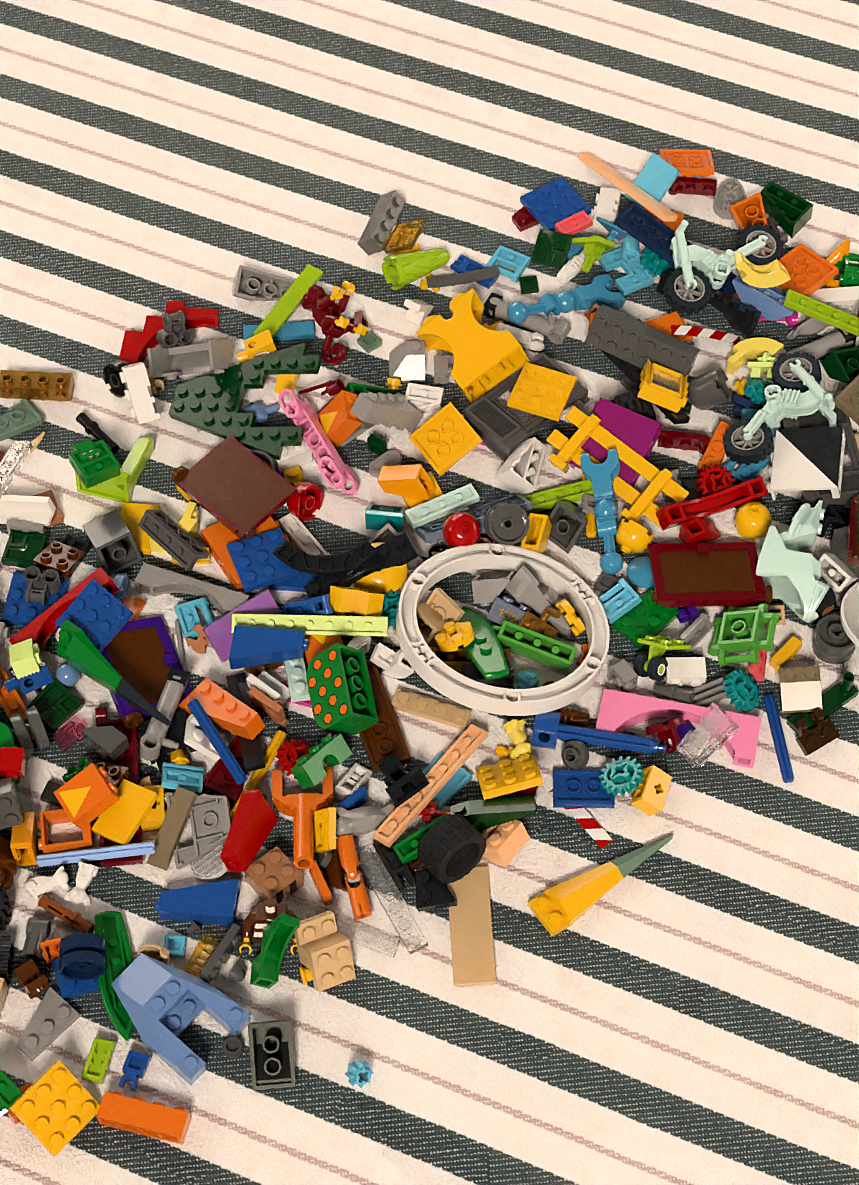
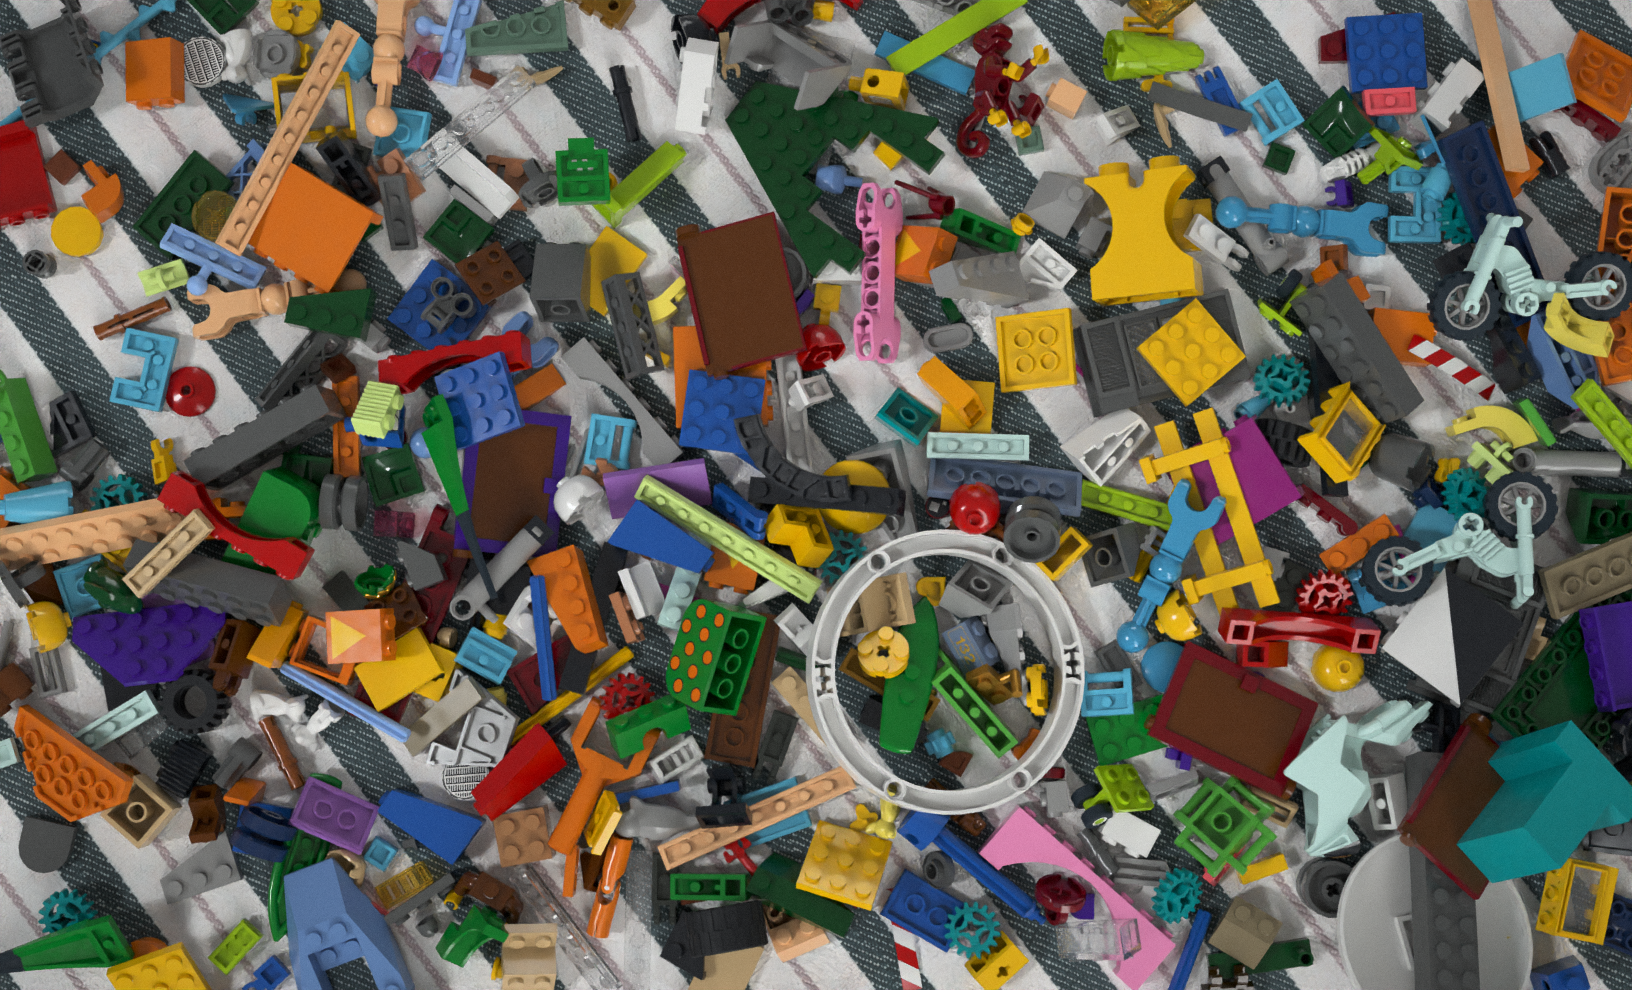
camera: 30 degrees right, 30 degrees up
(67, 494) = (540, 187): none -> dark grey tile
(128, 926) = (334, 815): none -> medium lavender tile
(183, 500) = (676, 265): none -> clear tile
(192, 654) = (576, 496): none -> white cylinder
(198, 331) = (823, 10): none -> yellow hose
(311, 528) = (810, 392): none -> white slope
(378, 309) = (1065, 97): none -> light nougat brick
(401, 683) = (792, 658): none -> dark green piece
(416, 738) = (775, 743): none -> pearl dark grey hinge
(441, 293) = (1162, 123): none -> tan bar
(465, 600) = (933, 587): none -> yellow tile
(577, 281) = (1343, 194): none -> dark purple tile
(577, 353) = (1289, 286): none -> lime plate
(608, 386) = (1279, 383): none -> teal gear
(610, 661) = (1055, 772): none -> dark red tile
(691, 215) = (1550, 154): none -> black hinge
(774, 332) = (1532, 417): none -> bright green tile

